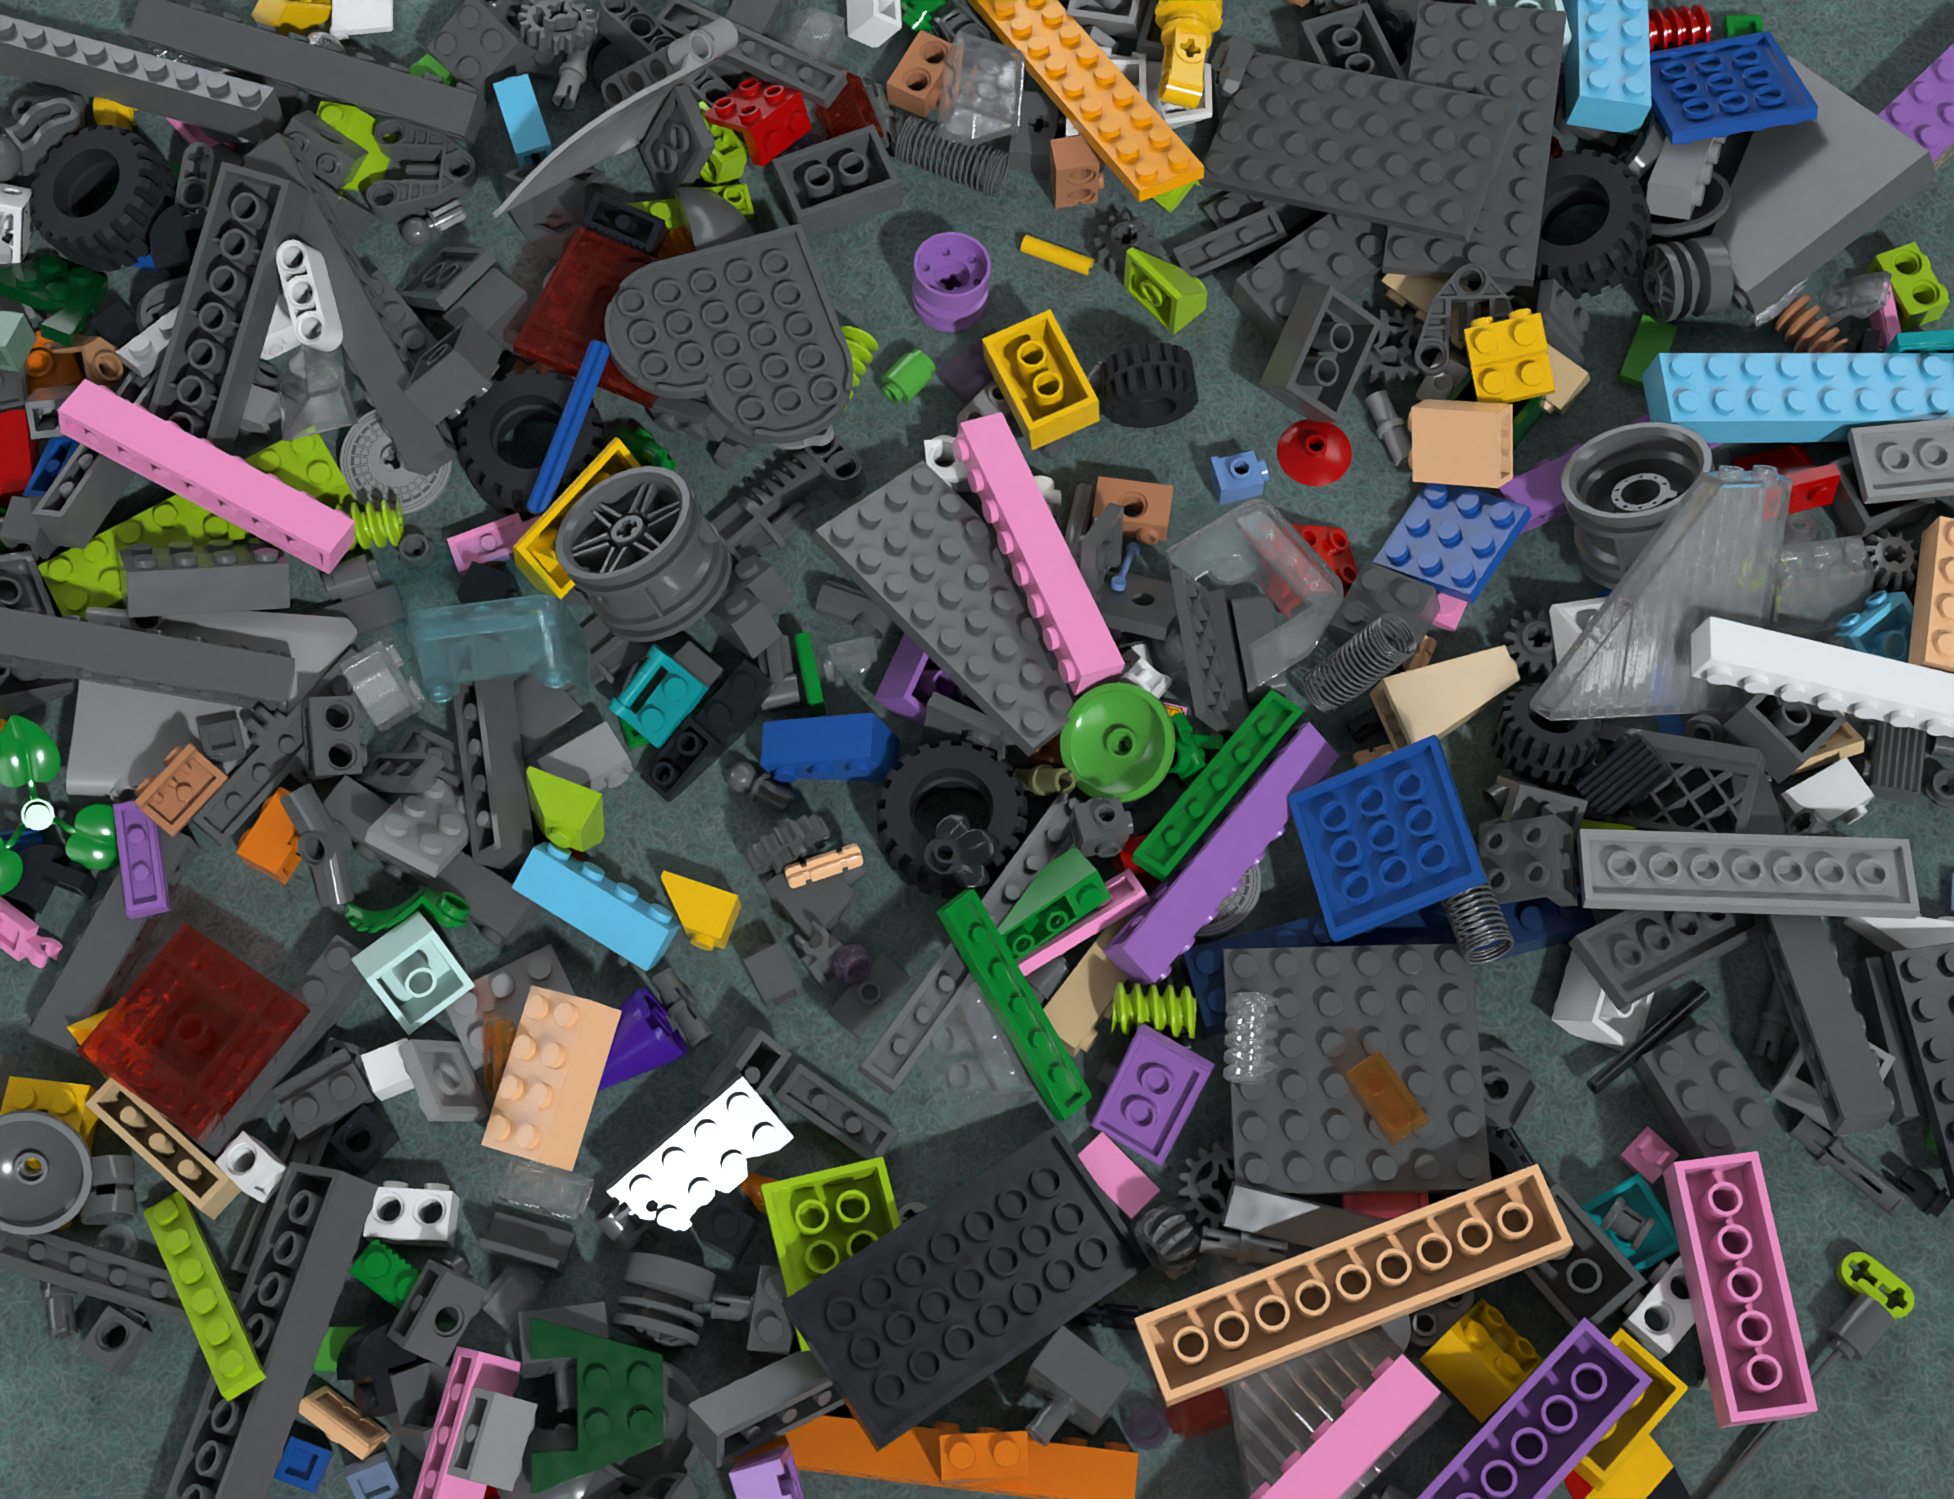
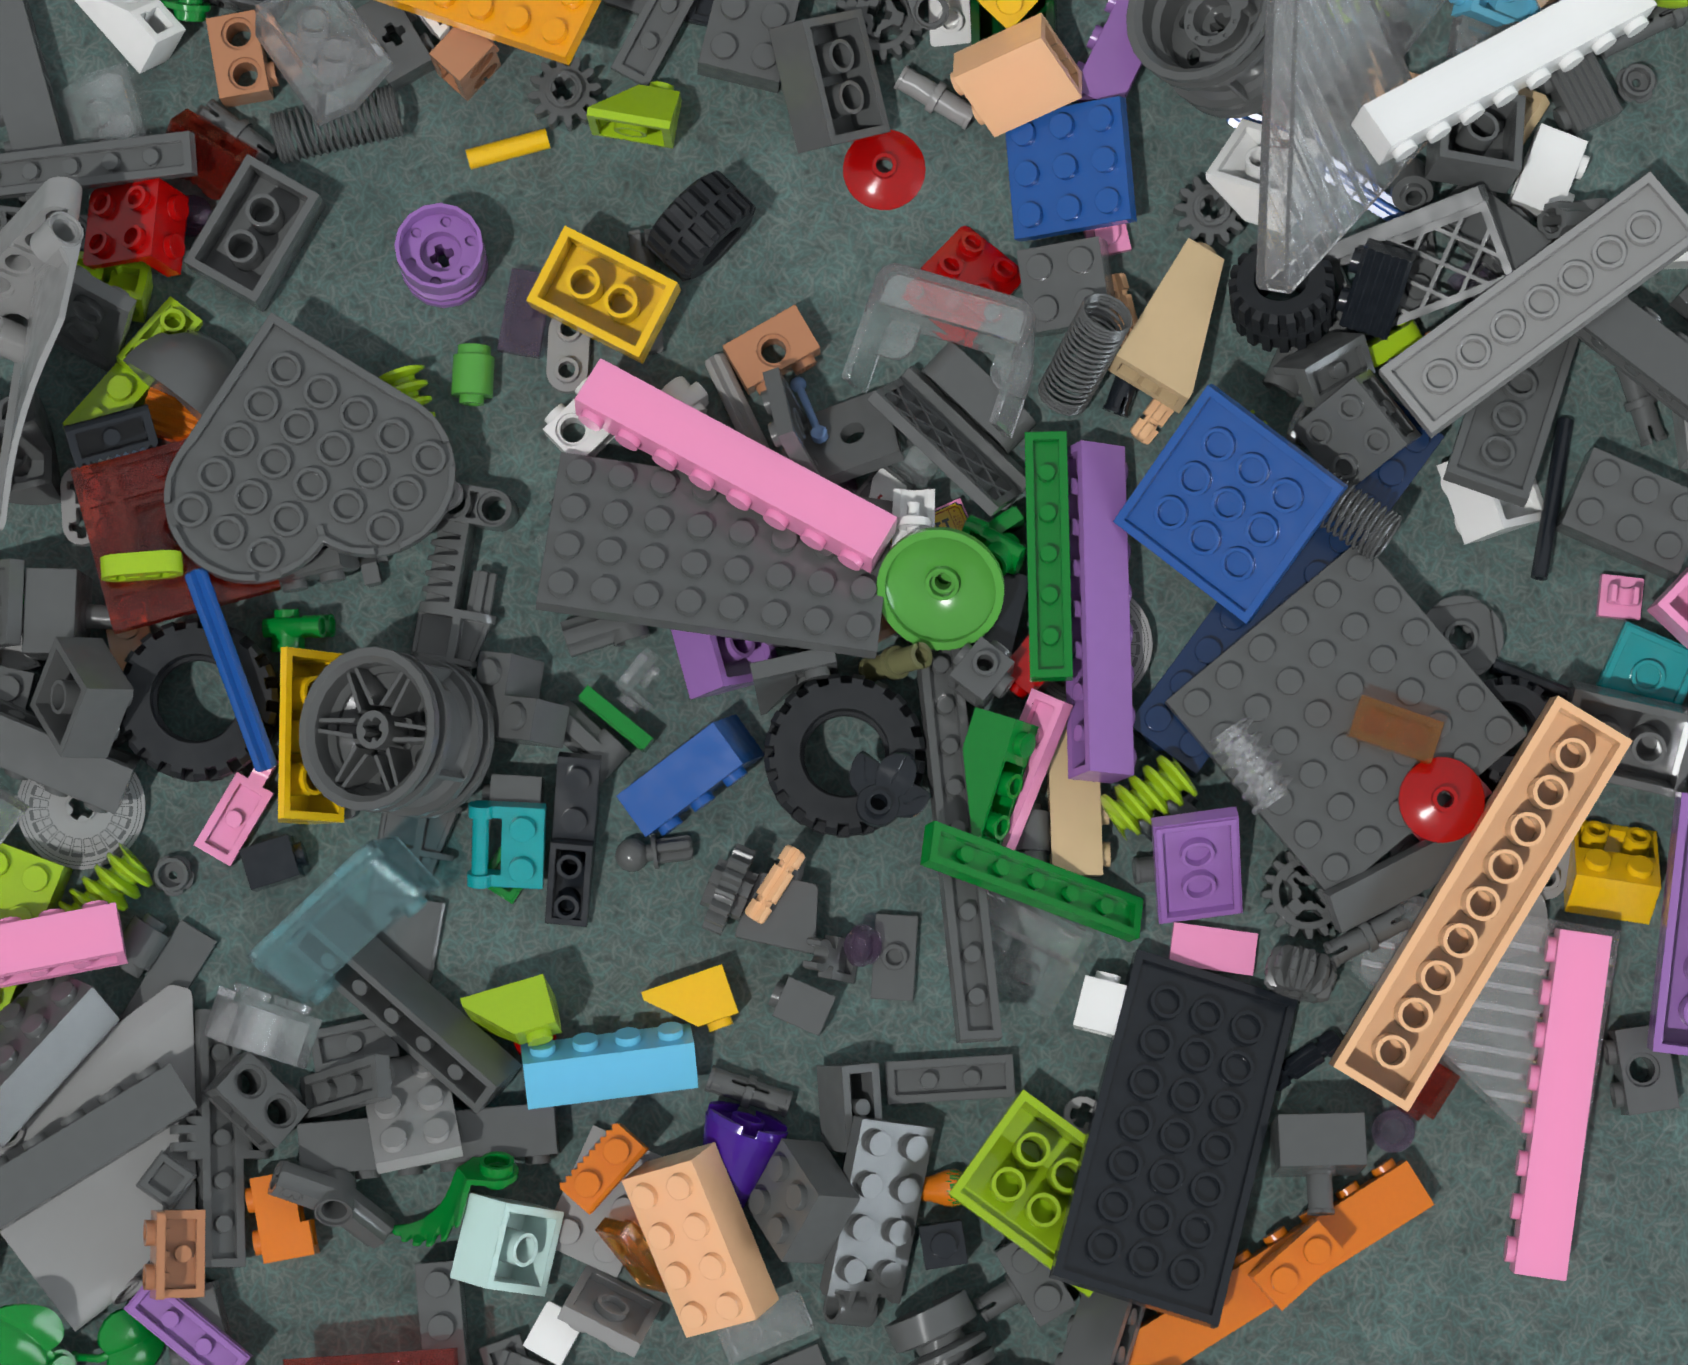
camera: 40 degrees left, 15 degrees up
(514, 971) = (603, 1167): none -> orange brick
(568, 314) = (141, 566): none -> lime beam
(590, 760) = (493, 949): light grey brick -> none
(648, 1107) = (802, 1201): none -> dark grey brick
(992, 1141) = (1100, 1004): none -> white brick
(1230, 485) = (838, 262): medium blue brick -> none
(1370, 1199) = (1419, 800): none -> red dish
(1628, 1223) = (1649, 674): dark grey bush -> none

